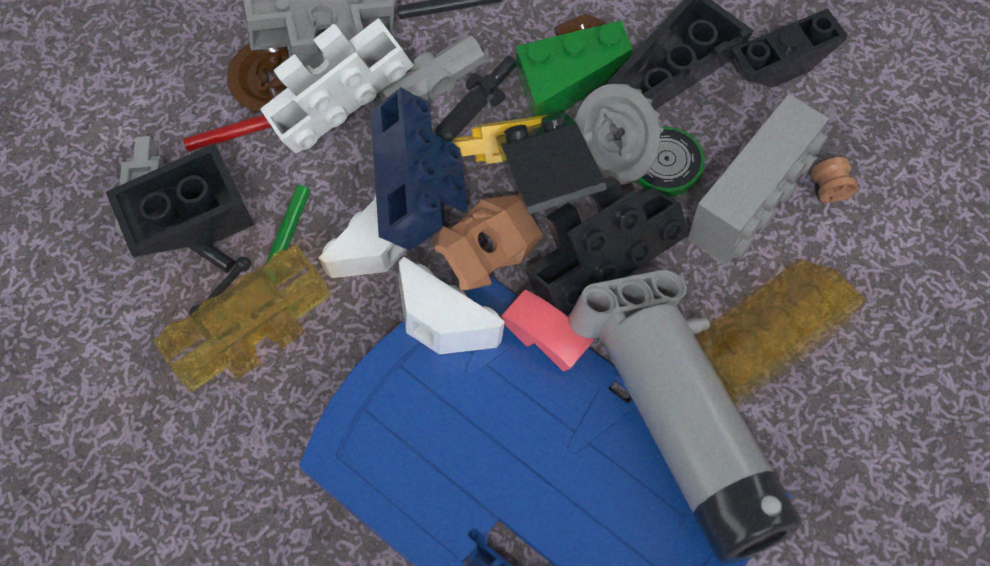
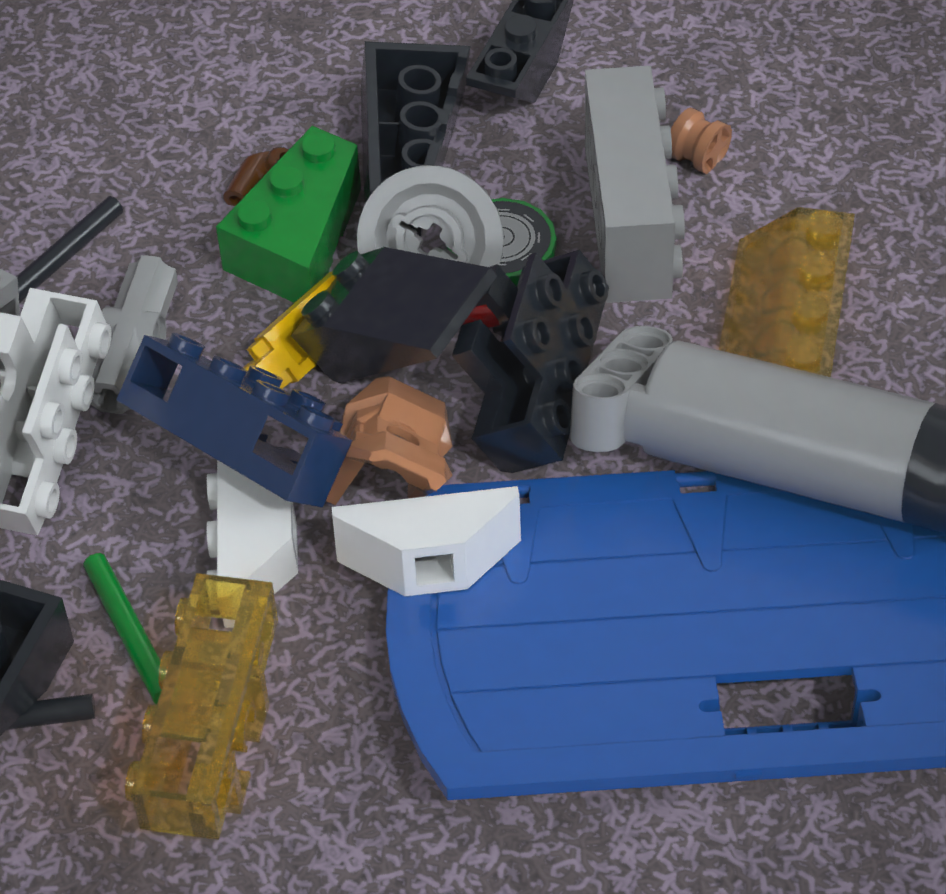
camera: 45 degrees left, 15 degrees down
(242, 264) = (107, 783): black hinge -> none
(476, 99) = (209, 327): black sword -> none
(546, 326) = (560, 471): coral slope -> none

